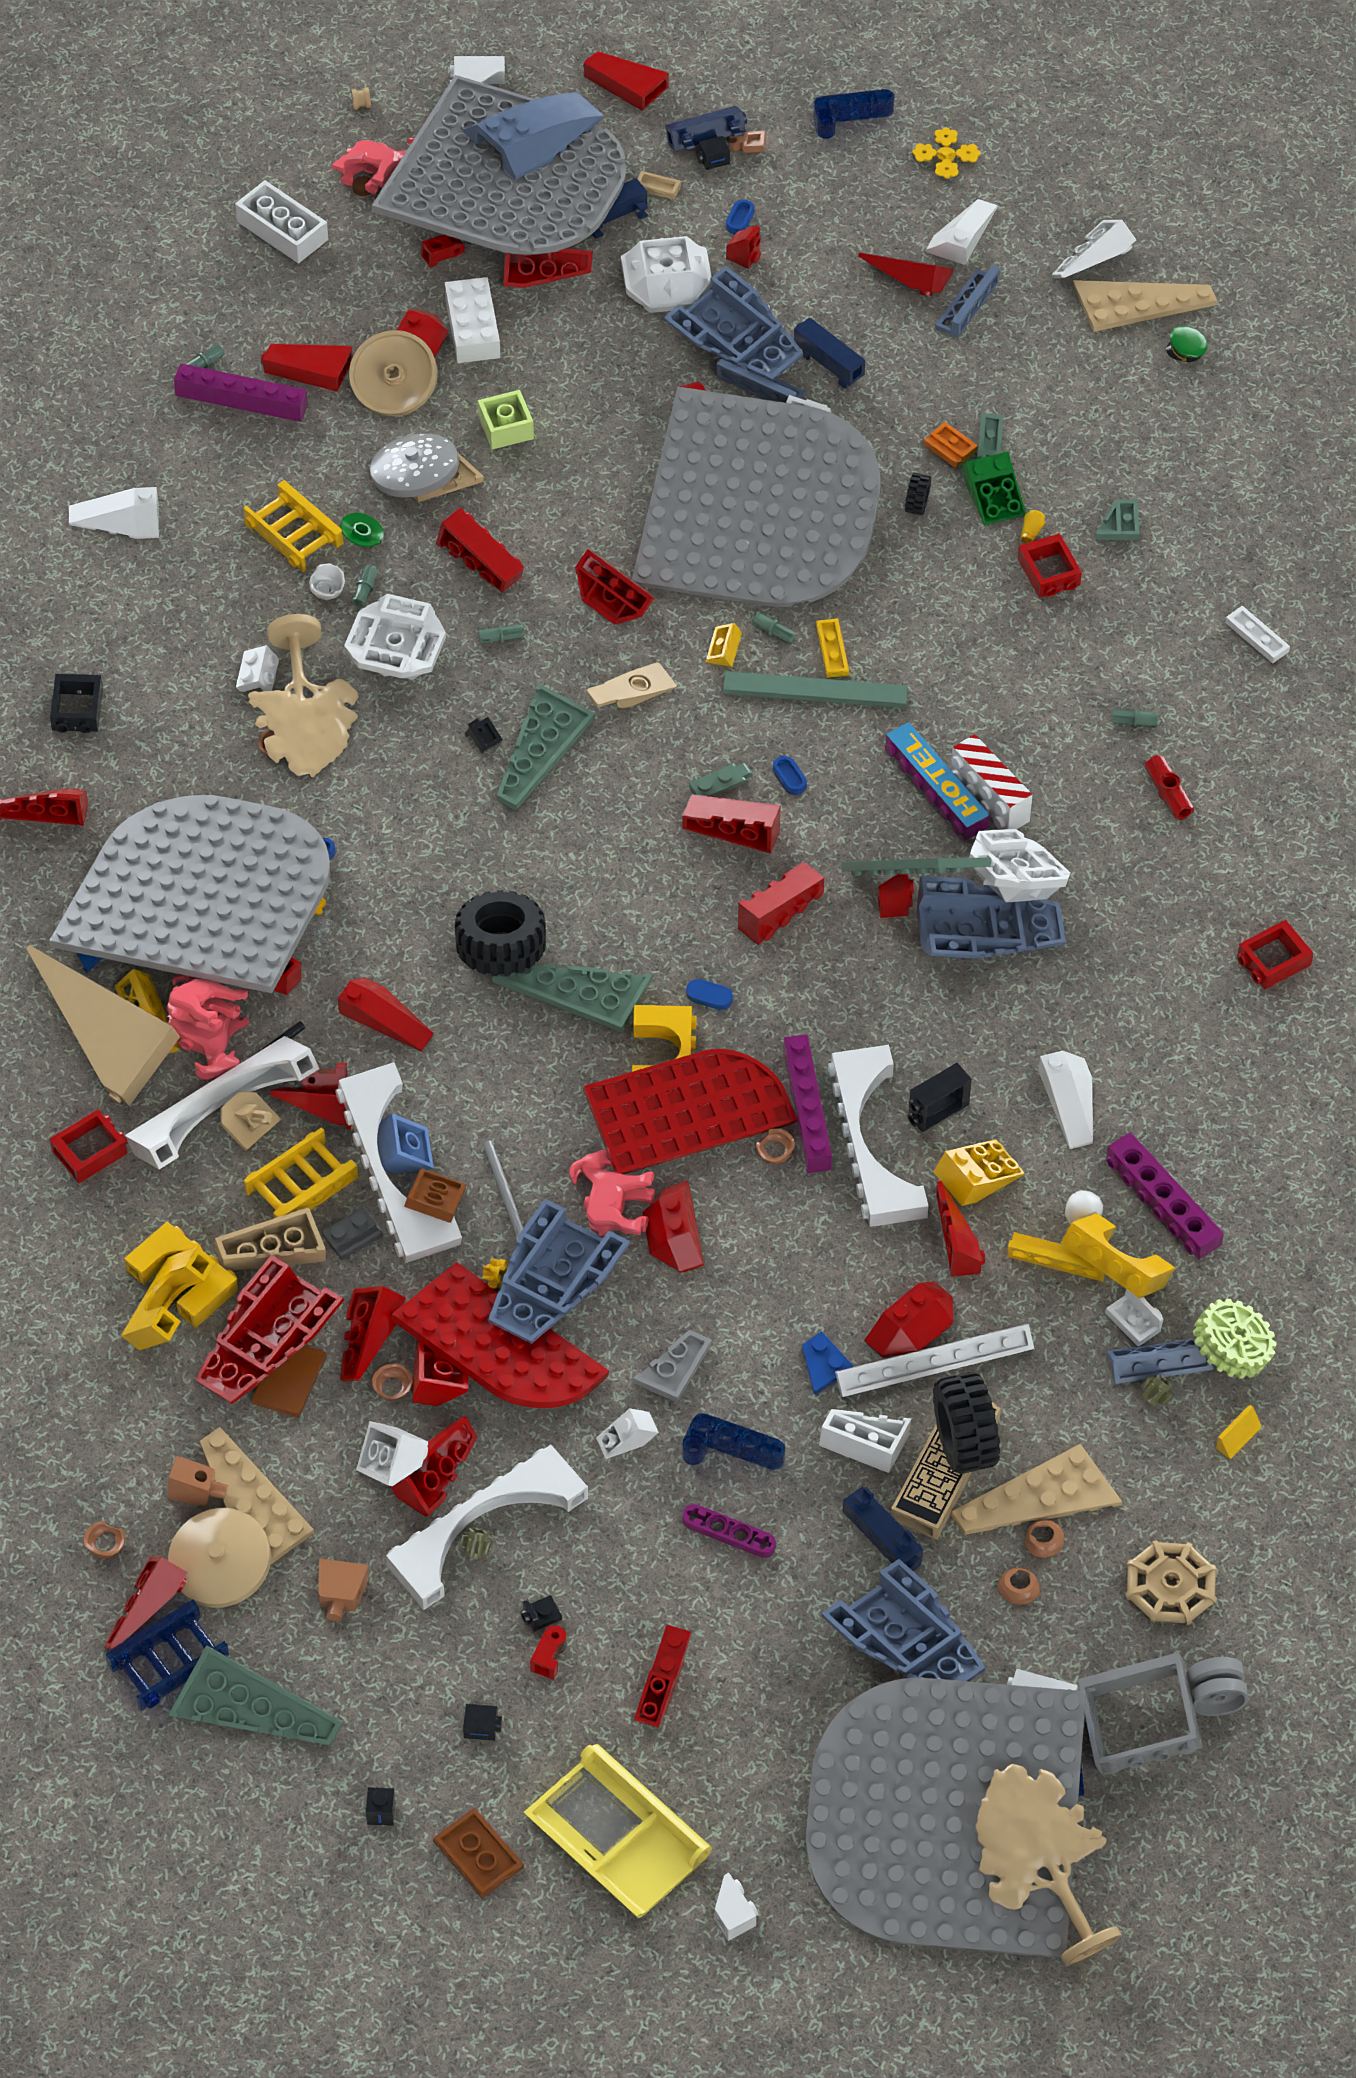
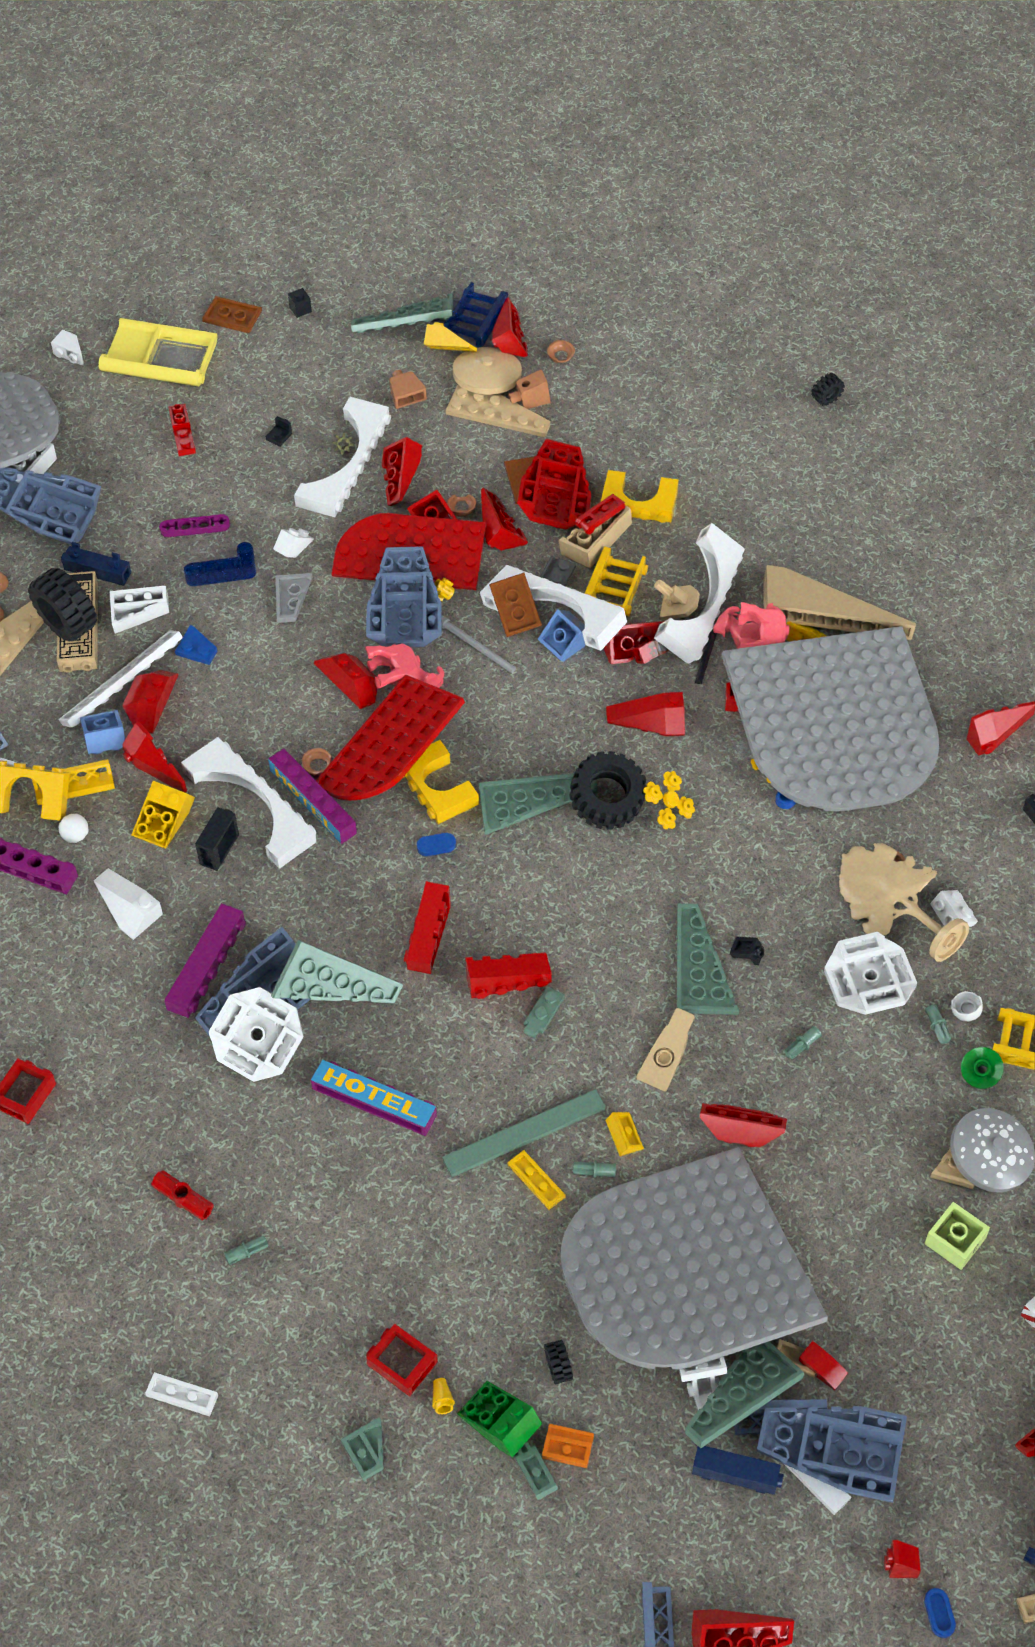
camera: 150 degrees right, 0 degrees up
(97, 1162) = (767, 524): red window -> none
(152, 1321) = (634, 478): yellow arch -> none
(237, 1619) = (444, 339): none -> yellow slope
(258, 1241) = (600, 513): none -> red plate
(390, 1453) = (423, 451): white slope -> none
(454, 894) = (670, 799): none -> yellow plant
(479, 550) = (875, 1096): red wedge -> none
(481, 1722) = (273, 364): black brick -> none
(545, 1655) = (258, 409): red leg -> none
(666, 273) = (947, 1515): white piece -> none
(789, 775) = (494, 1046): blue tile -> none
(806, 383) = (749, 1384): none -> sand green wing
(991, 783) = (325, 1106): white brick -> none
(992, 1298) = (103, 732): none -> medium blue slope
(1023, 990) = (205, 960): none -> magenta brick

